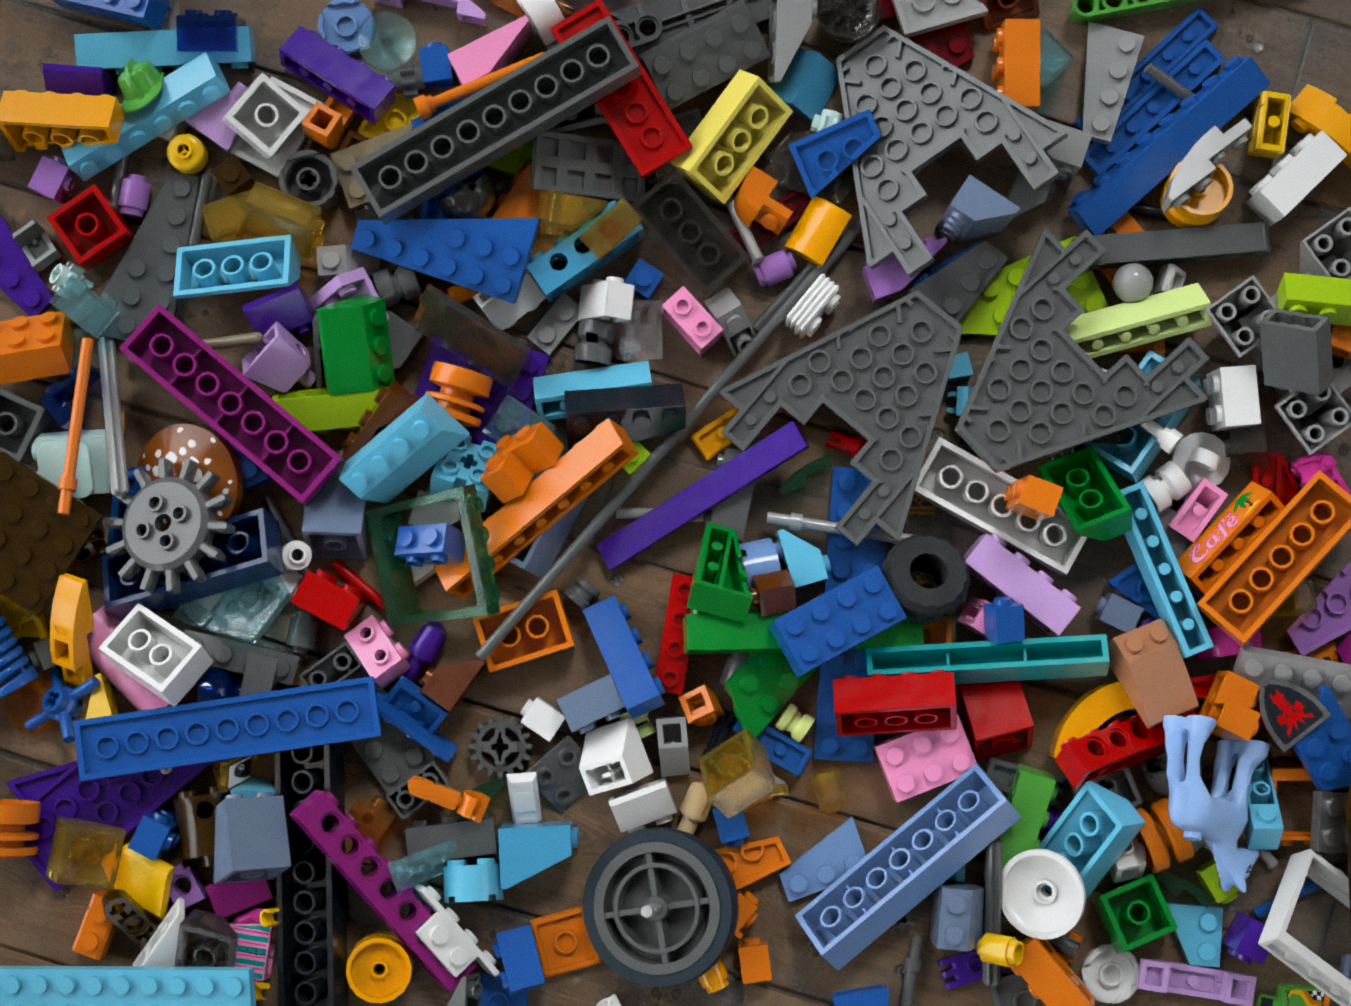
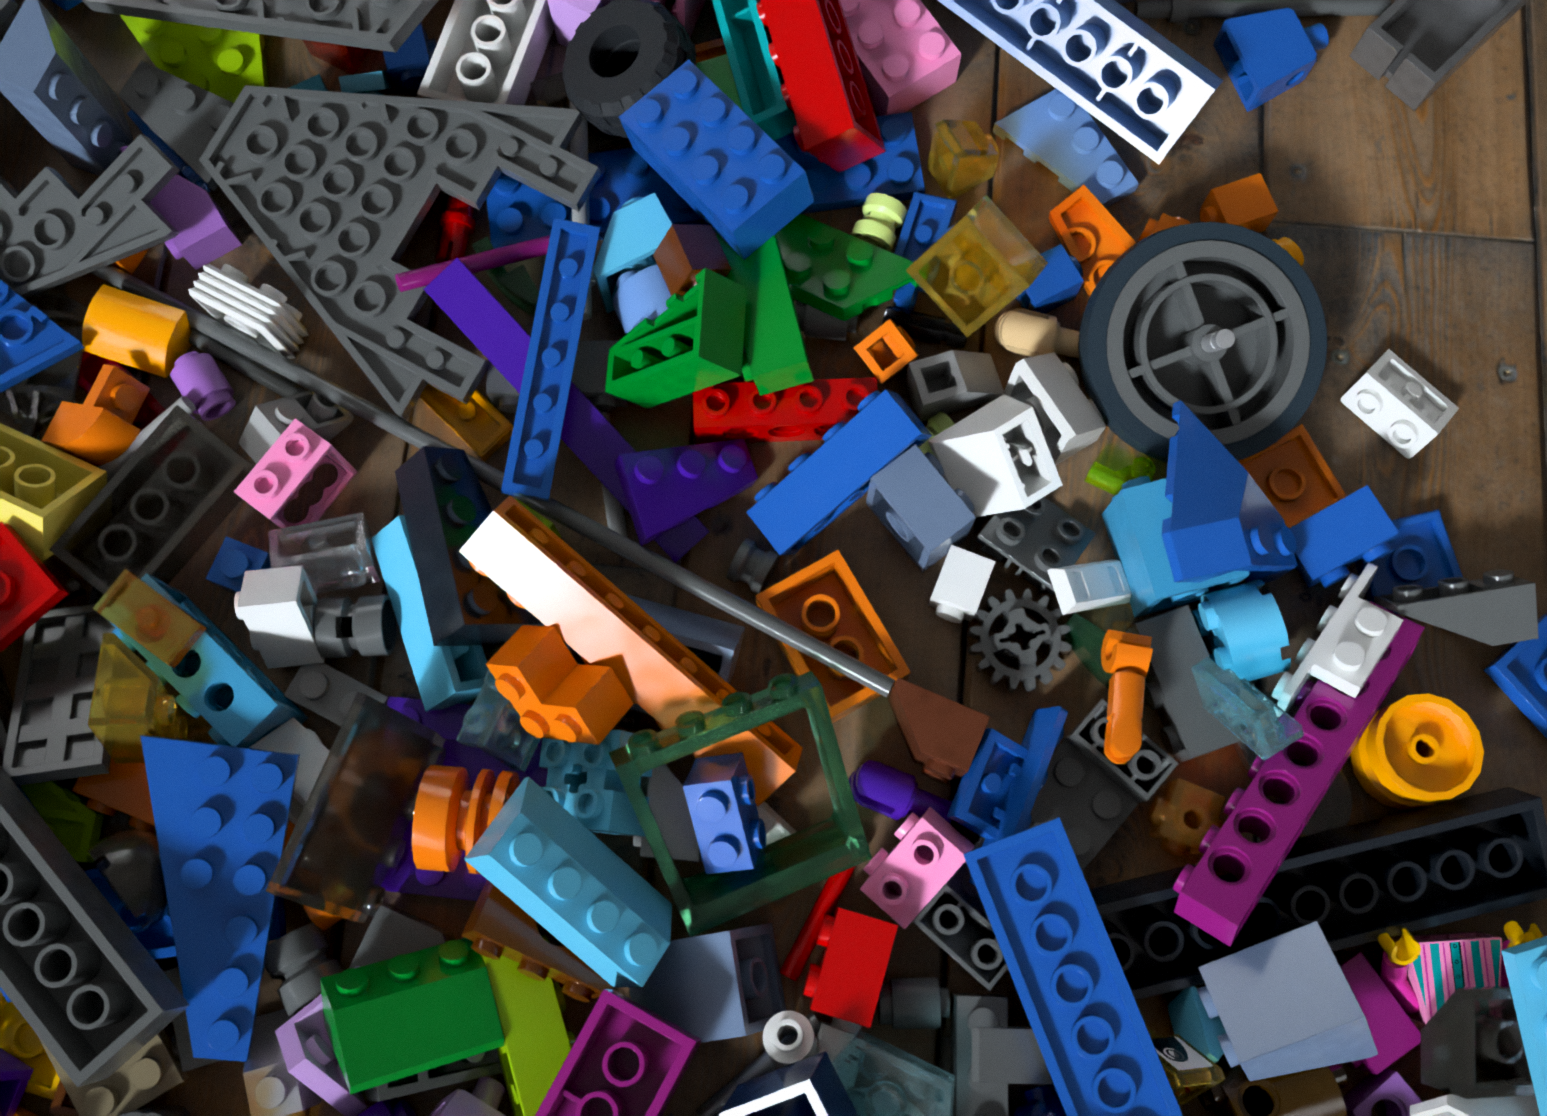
camera: 100 degrees left, 10 degrees down
(543, 880) = (1218, 512): none -> blue wedge
(589, 839) = (1112, 480): none -> clear neon green arm
(641, 559) = (679, 482): none -> dark purple wing
(729, 492) = (550, 360): none -> blue plate
(812, 462) = (476, 262): none -> magenta bar

